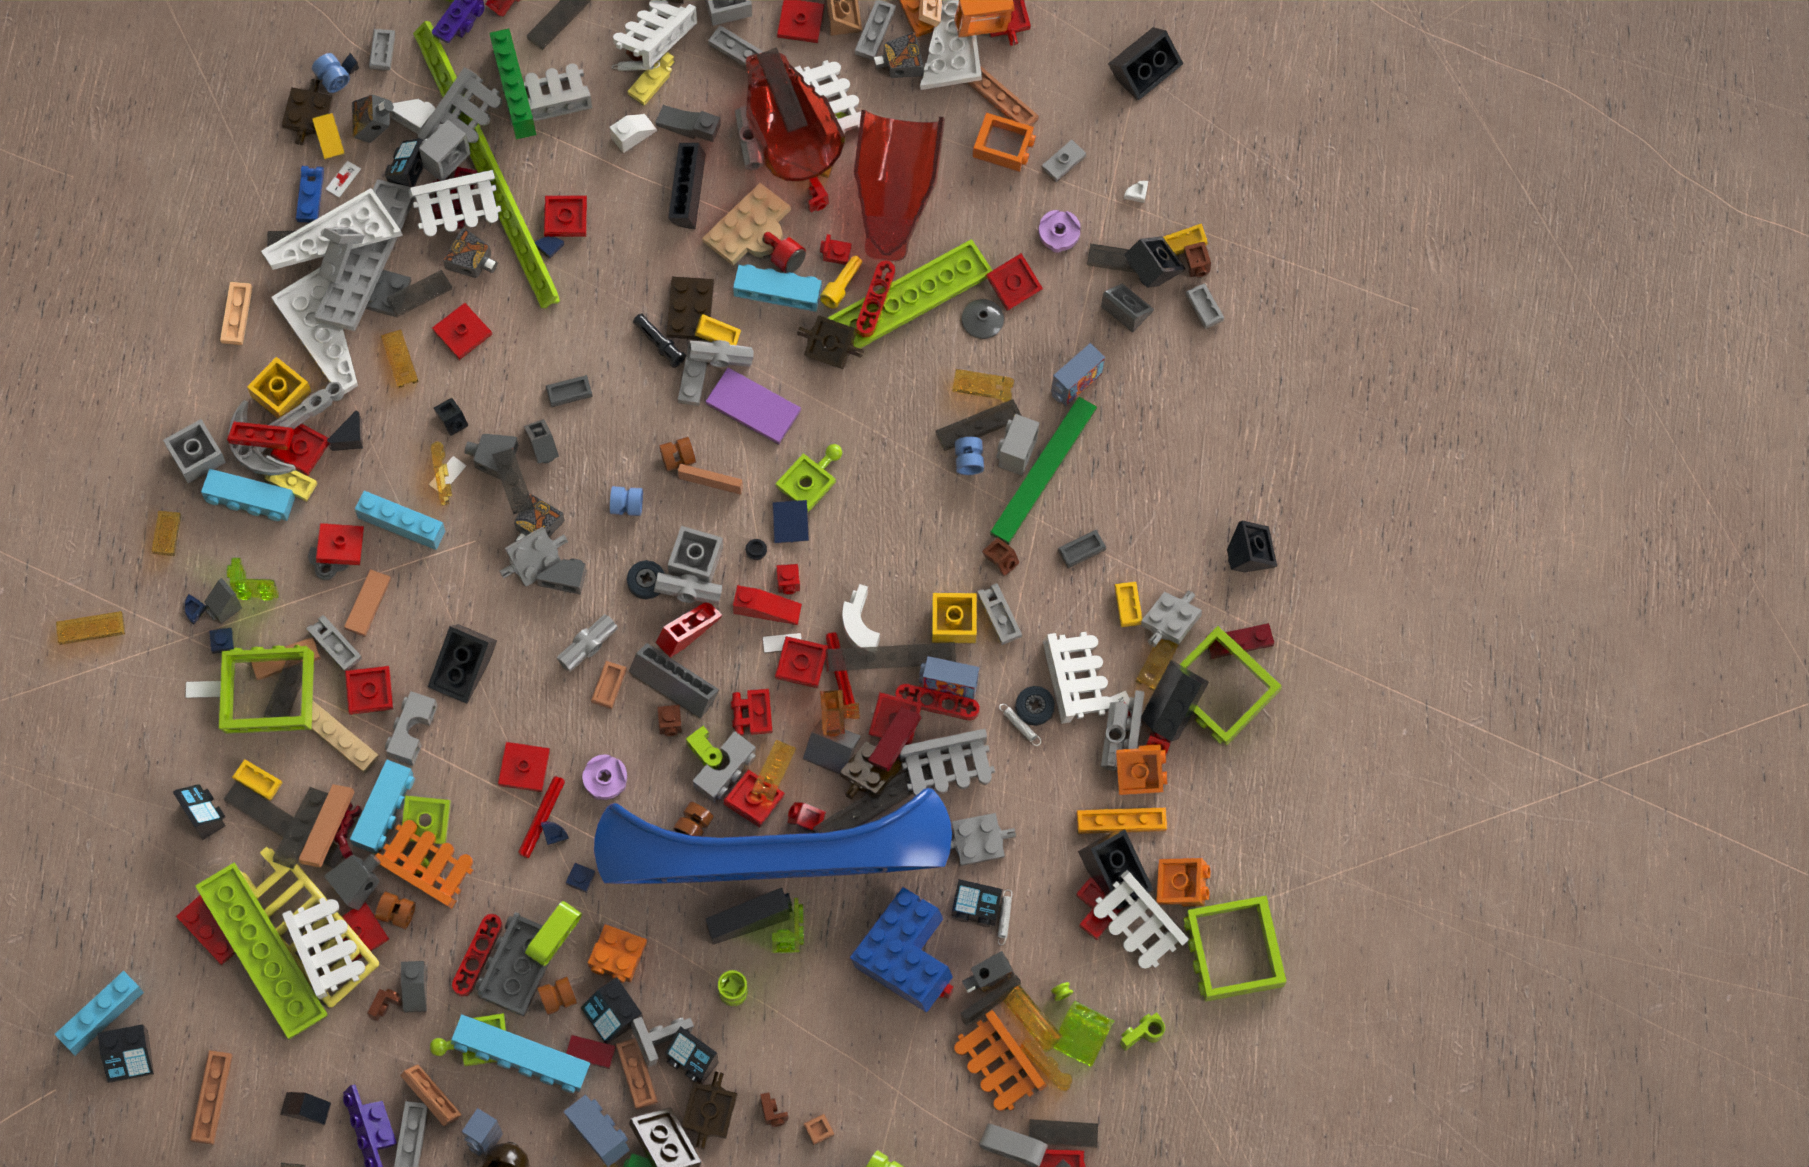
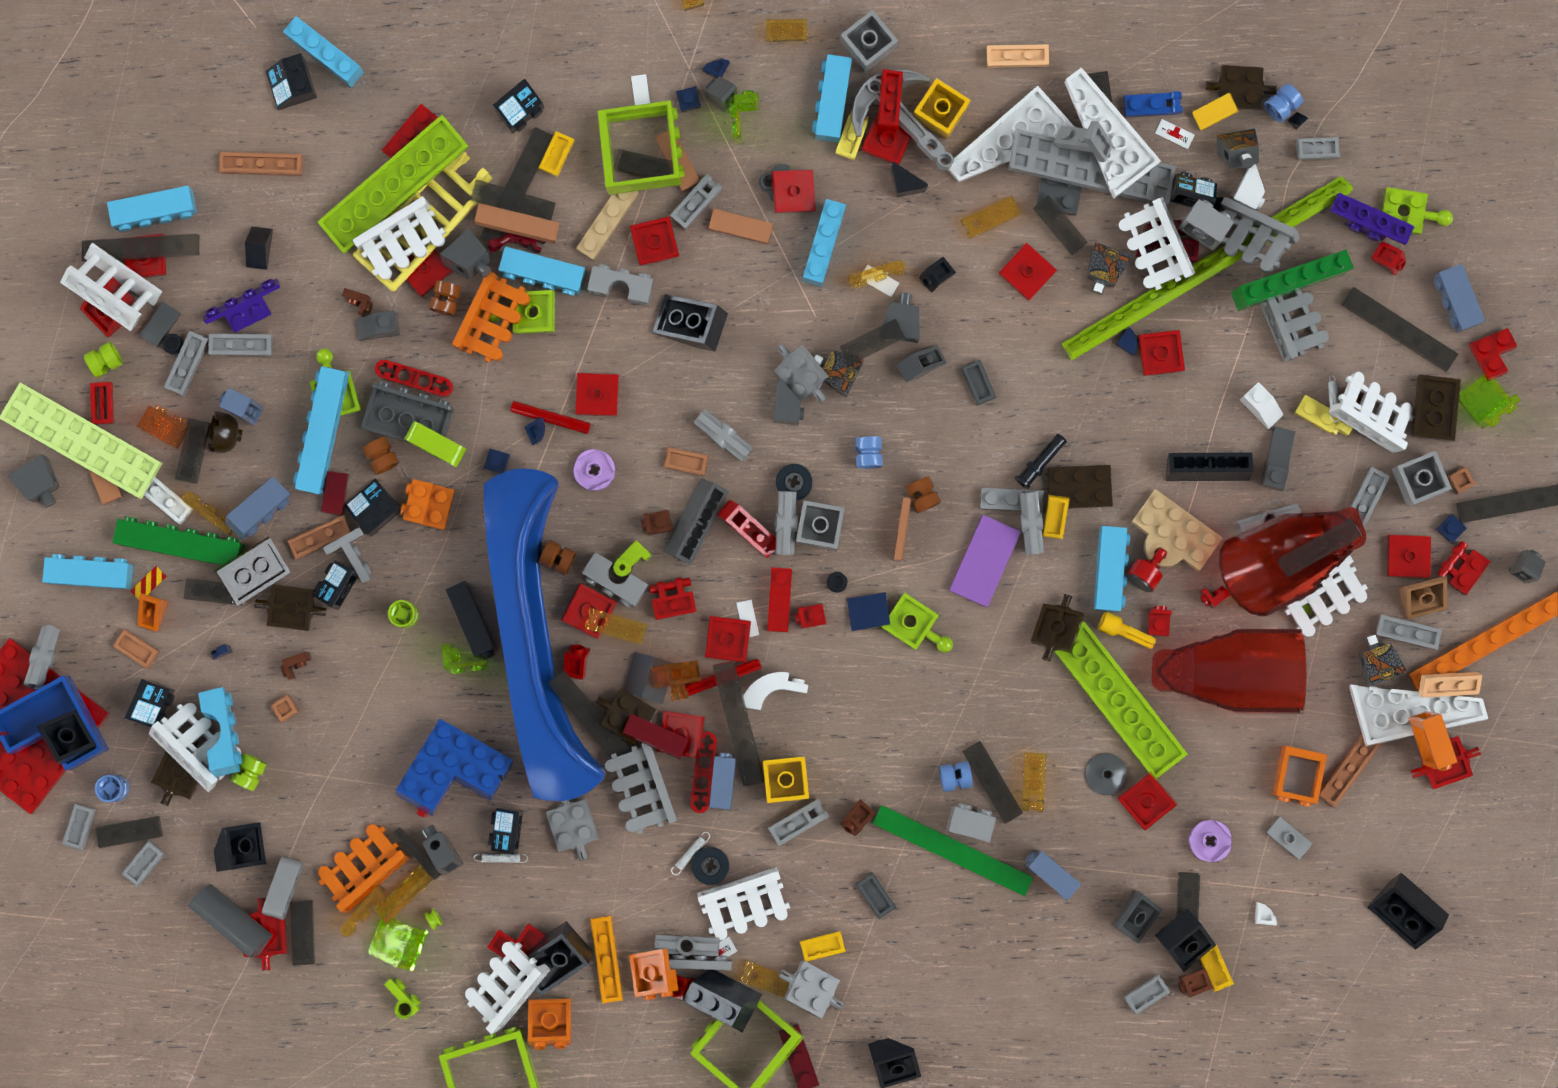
camera: 85 degrees right, 15 degrees up
(431, 1095) = (279, 356): nougat tile -> none
(877, 299) = (1108, 669): red beam -> none

